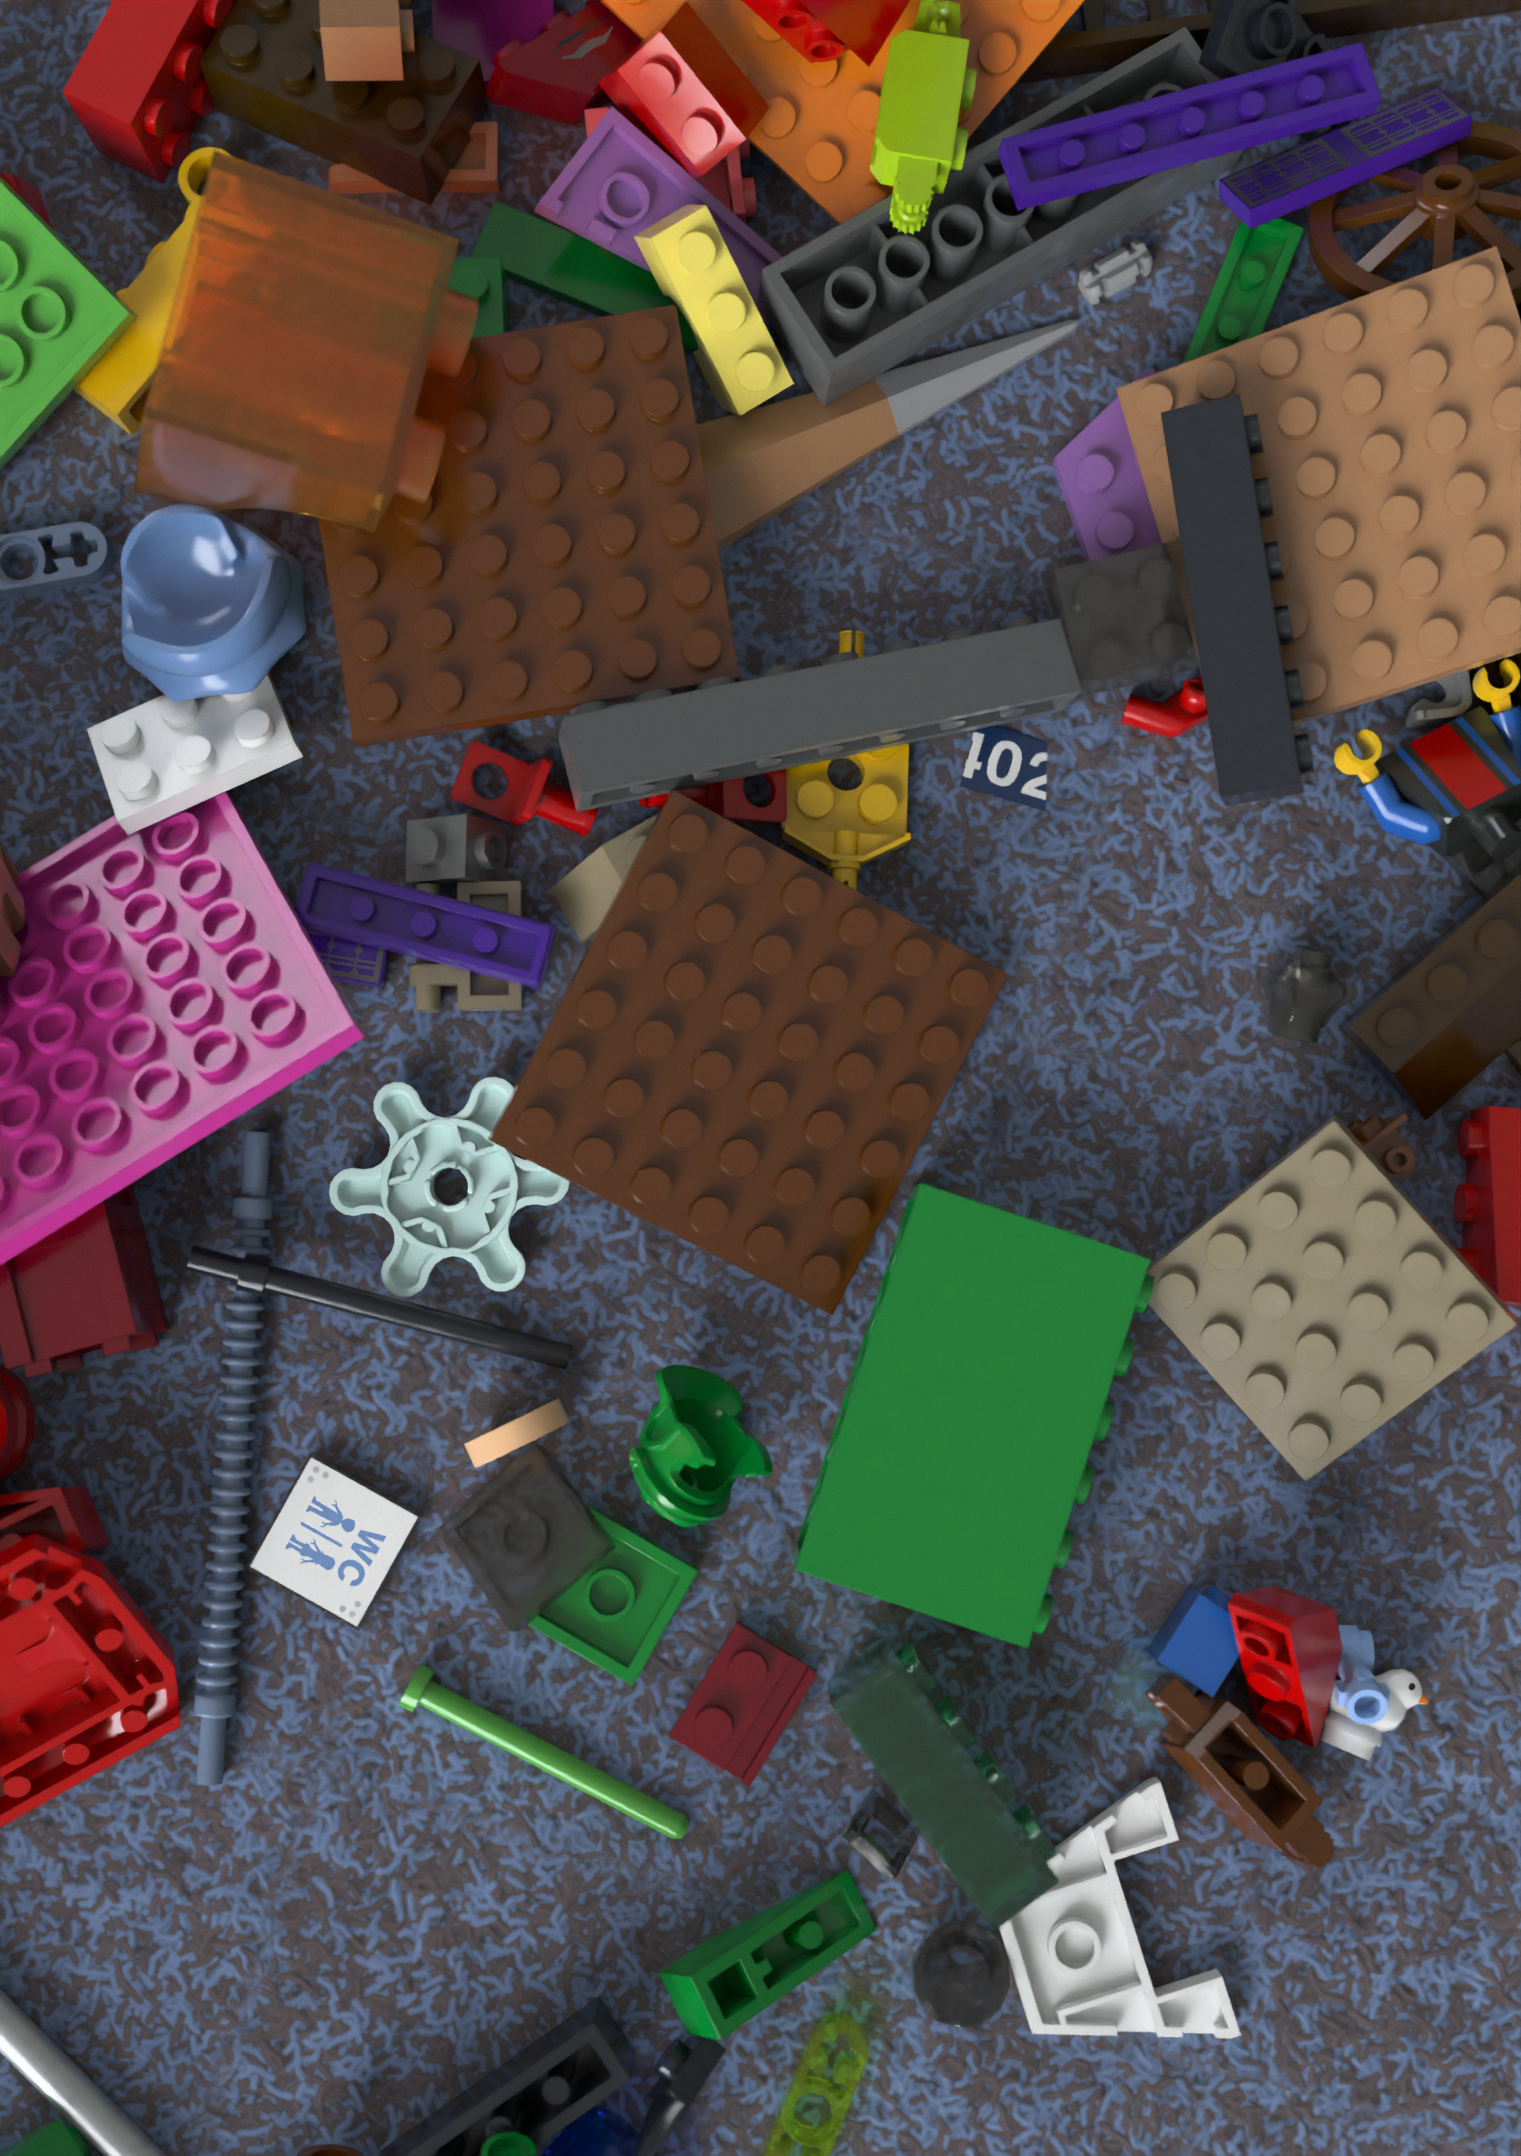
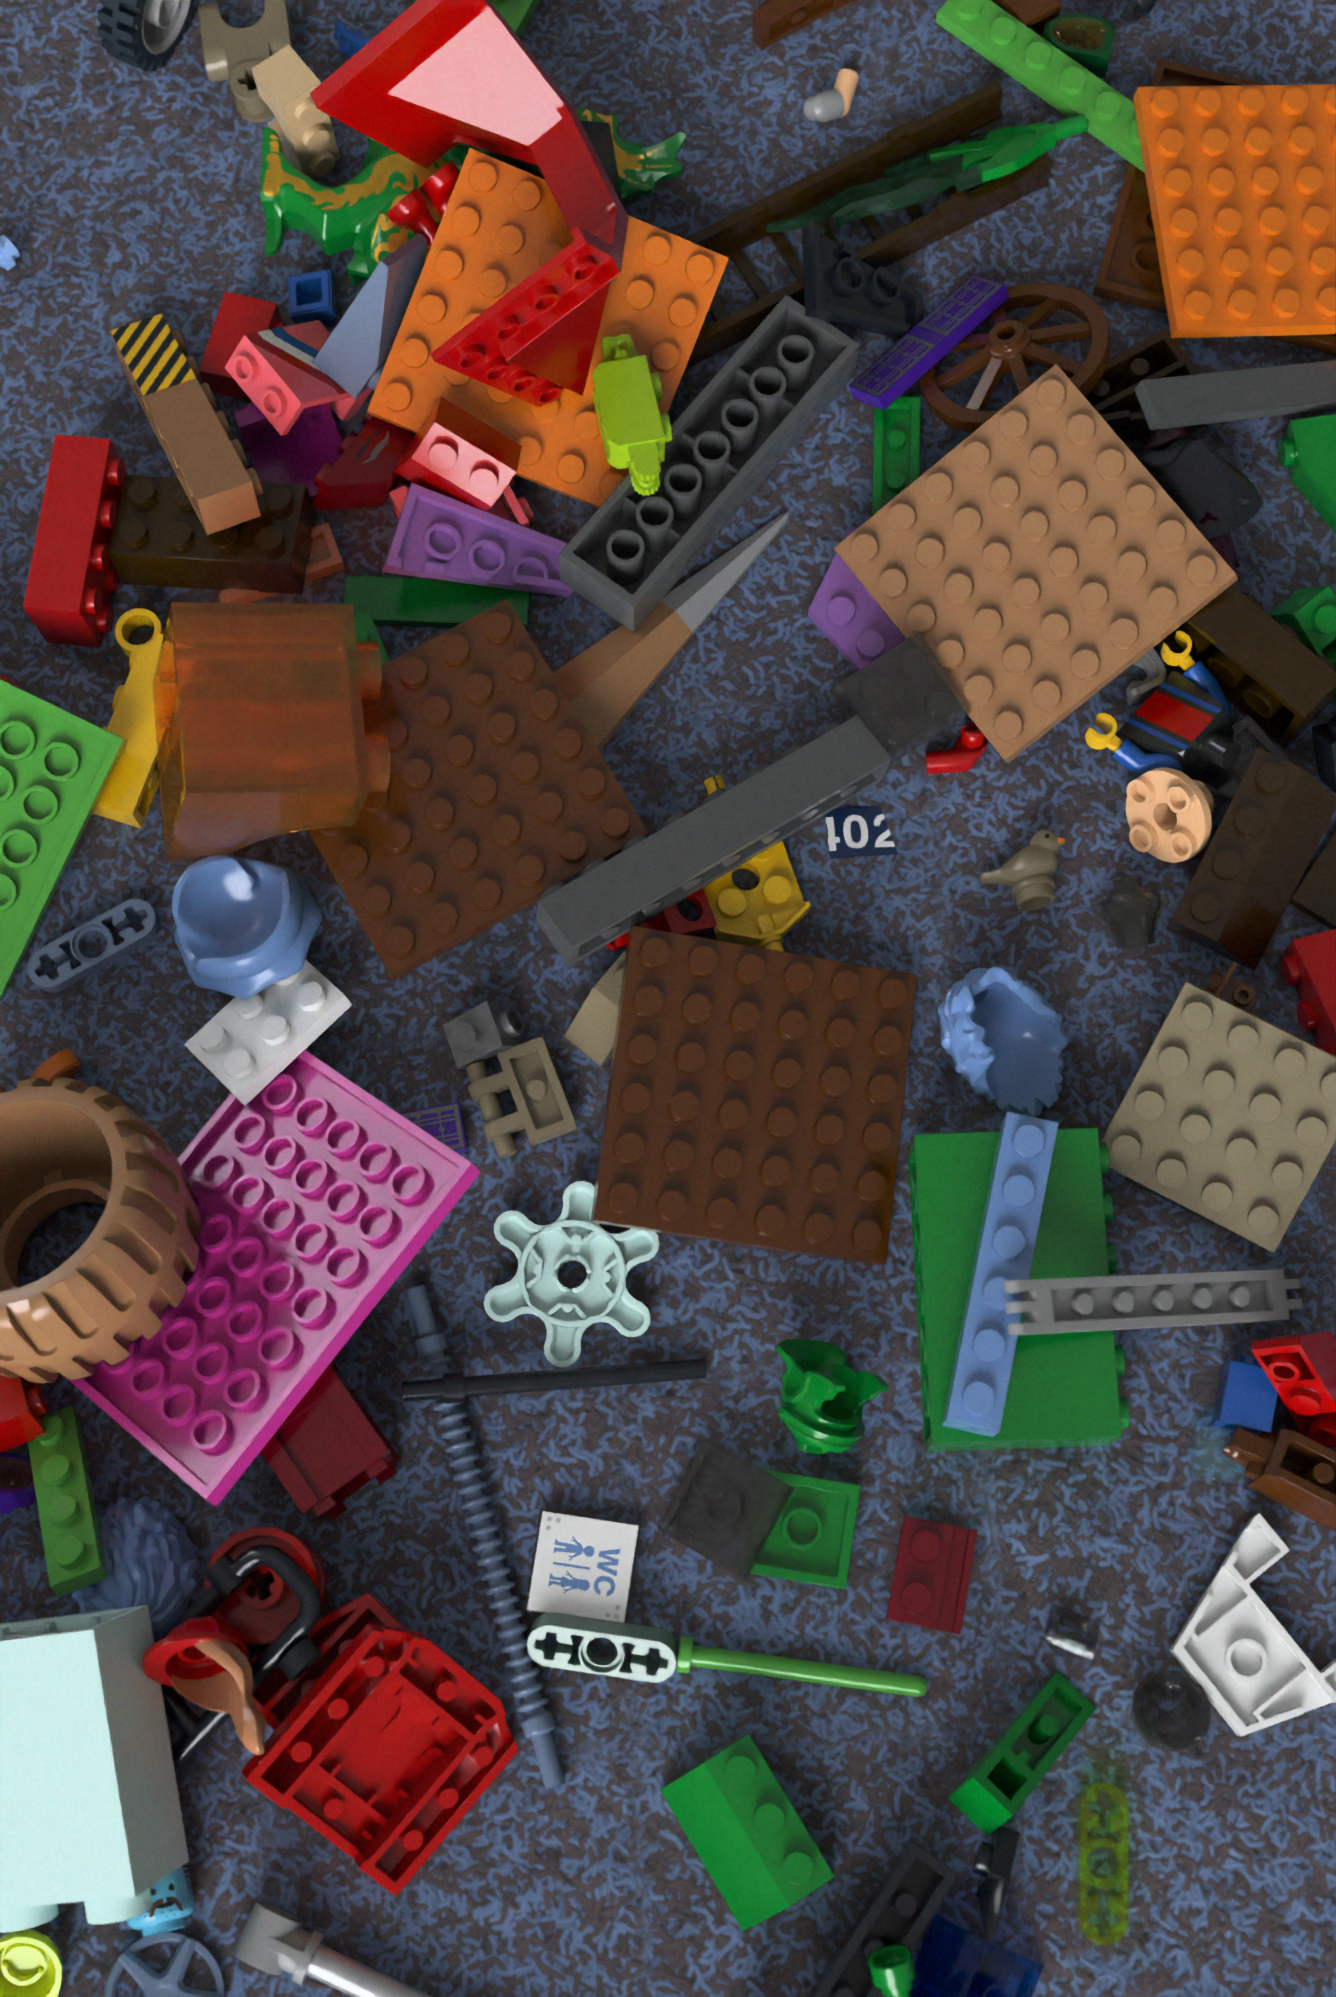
camera: 15 degrees left, 10 degrees down
(348, 1638) = (642, 1638): none -> sand green beam
(414, 1923) = (747, 1833): none -> green slope
(425, 925) = (488, 1090): dark purple tile -> none
(517, 1433) = (689, 1431): light nougat piece -> none
(526, 792) = (521, 974): red bracket -> none
(708, 288) = (514, 571): light yellow arch -> none
(948, 1791) = (1100, 1566): clear green brick -> none
(955, 1403) = (1002, 1254): none -> medium blue brick
(1081, 1098) = (1004, 1040): none -> medium blue hair
(1115, 272) = (800, 471): light grey piece -> none
(1123, 1497) = (1150, 1301): none -> light grey hinge
(1189, 126) = (815, 358): dark purple plate -> none
(1199, 896) = (1030, 872): none -> dark tan animal
(1233, 600) = (974, 661): black brick -> none
(1400, 889) = (1169, 814): none -> light nougat plate

